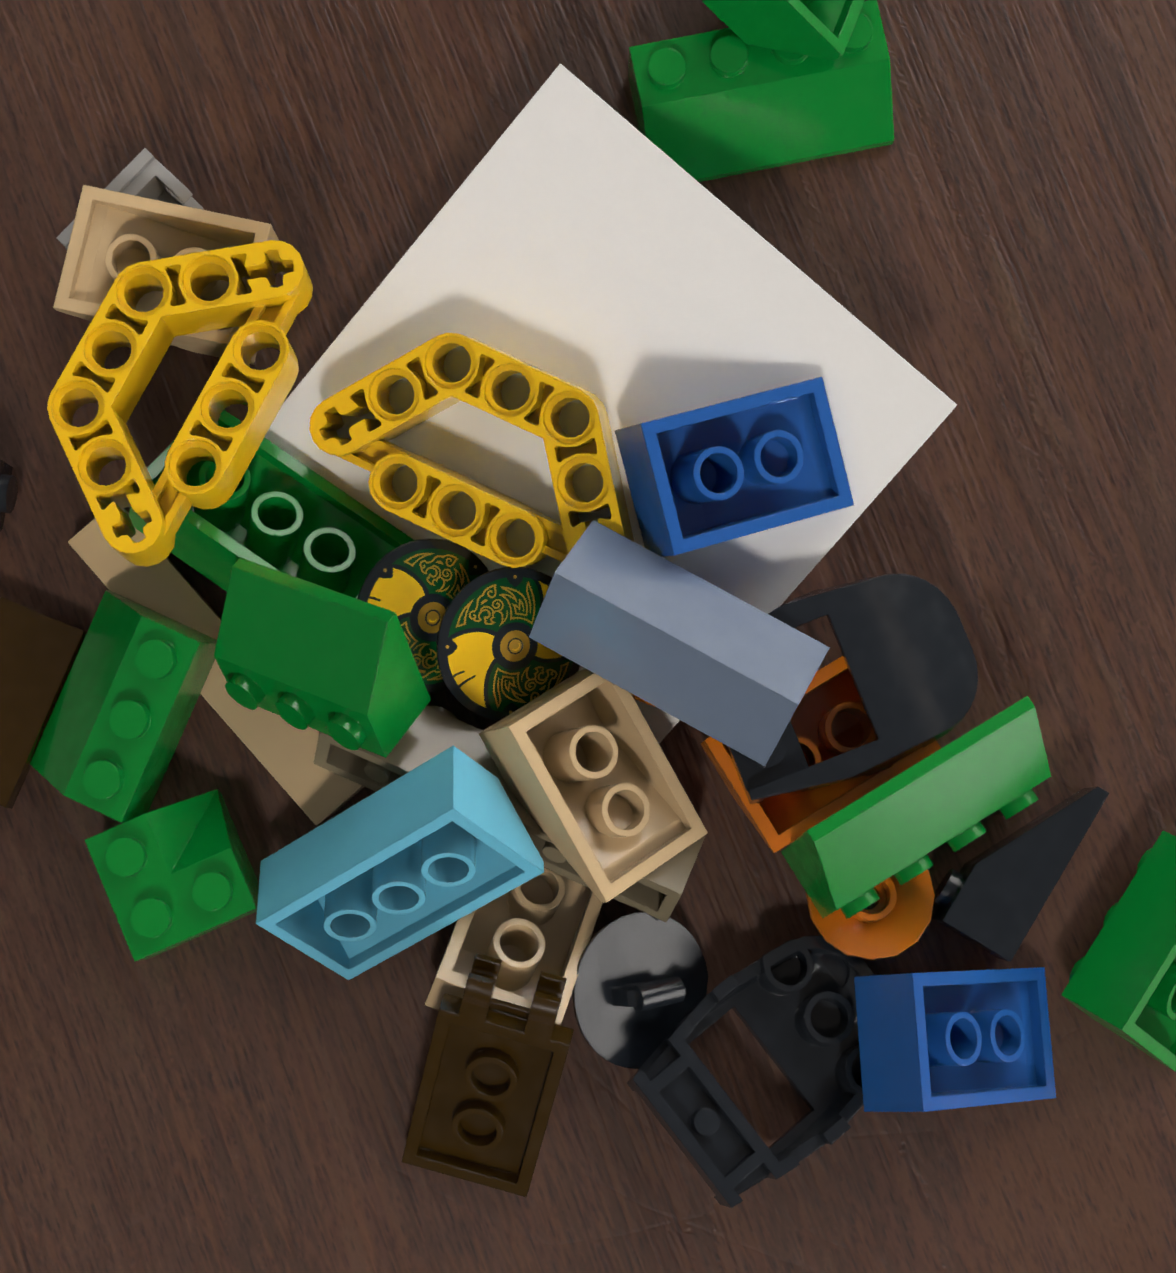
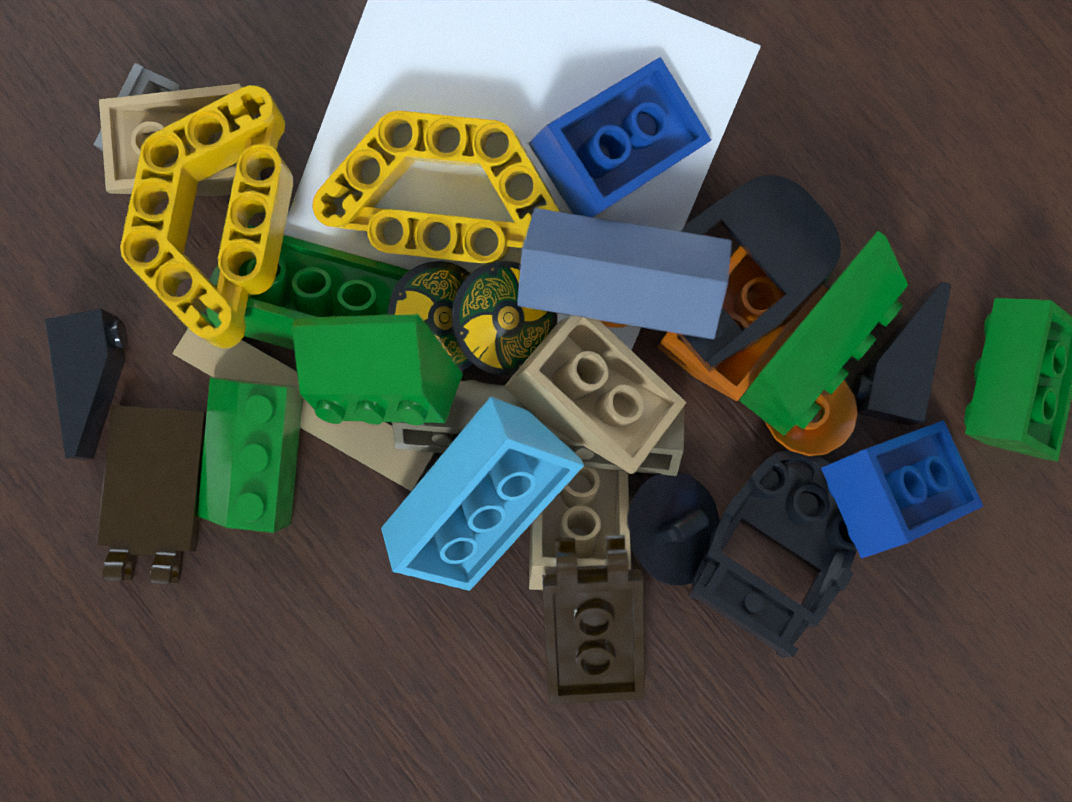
camera: 15 degrees left, 0 degrees up
(175, 873) = (323, 557): green slope -> none

